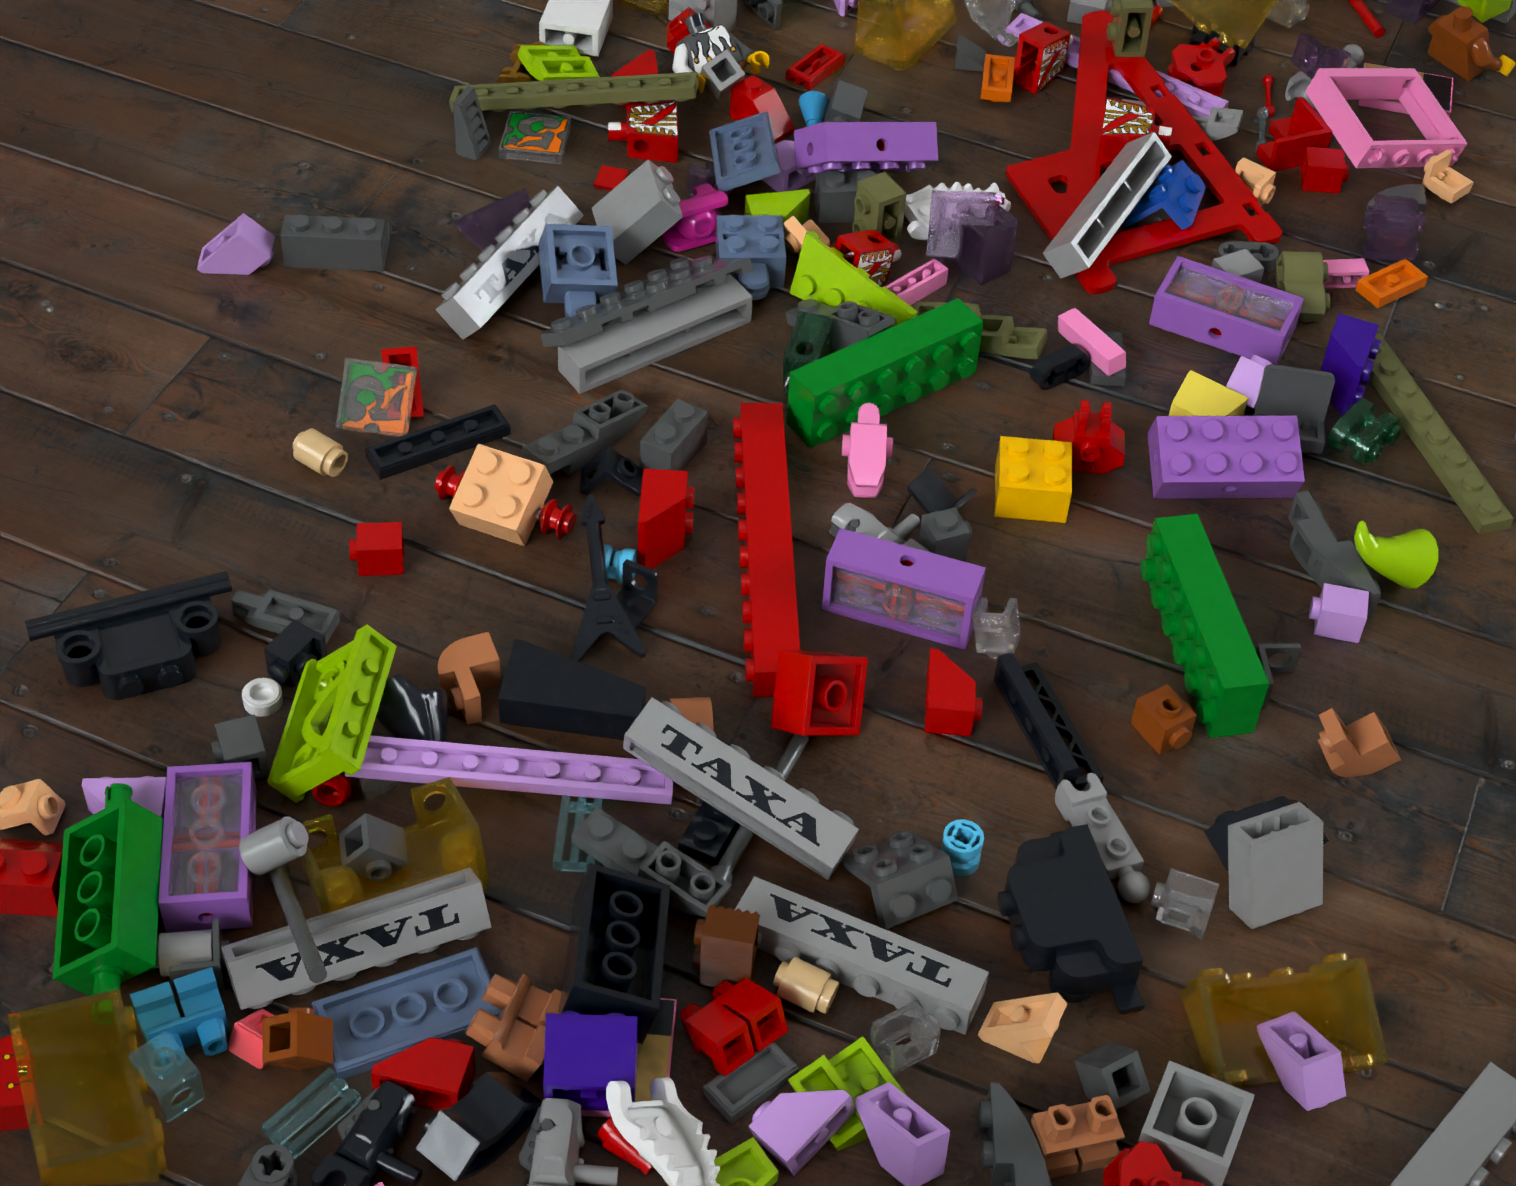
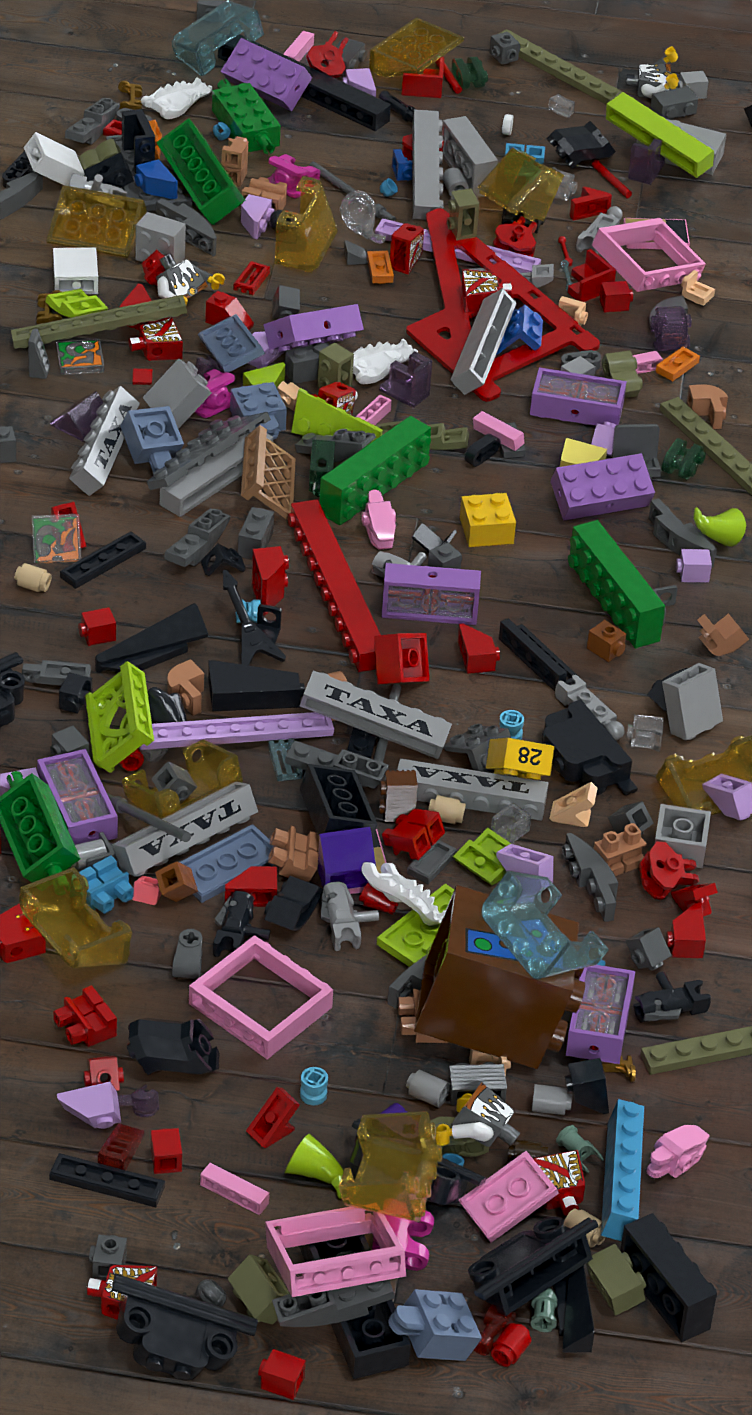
camera: 15 degrees left, 5 degrees down
(168, 1074) = (111, 906): clear light blue bracket -> none
(262, 697) = (63, 719): white tile -> none
(273, 845) = (122, 786): light grey brick -> none
(306, 1108) = (201, 906): clear light blue tile -> none
(450, 593) = (156, 643): none -> black wedge
(504, 496) = (164, 583): light nougat brick -> none
(707, 336) = (255, 468): none -> medium nougat fence
(722, 74) = (198, 293): light grey brick -> none
(800, 1124) = (470, 869): lavender slope -> none
(813, 107) = (263, 307): dark azure cone -> none
(951, 919) = (519, 758): none -> yellow brick
(952, 212) = (387, 362): clear purple panel -> none
(996, 631) = (494, 617): clear window -> none
(1092, 439) = (519, 489): red hinge -> none
(1312, 55) = (592, 220): clear purple plate -> none
(1324, 29) = (590, 204): none -> red slope
(1348, 359) = (665, 412): dark purple slope -> none
(1424, 348) = (708, 401): none -> nougat brick
(1464, 45) = (688, 196): dark orange torso -> none

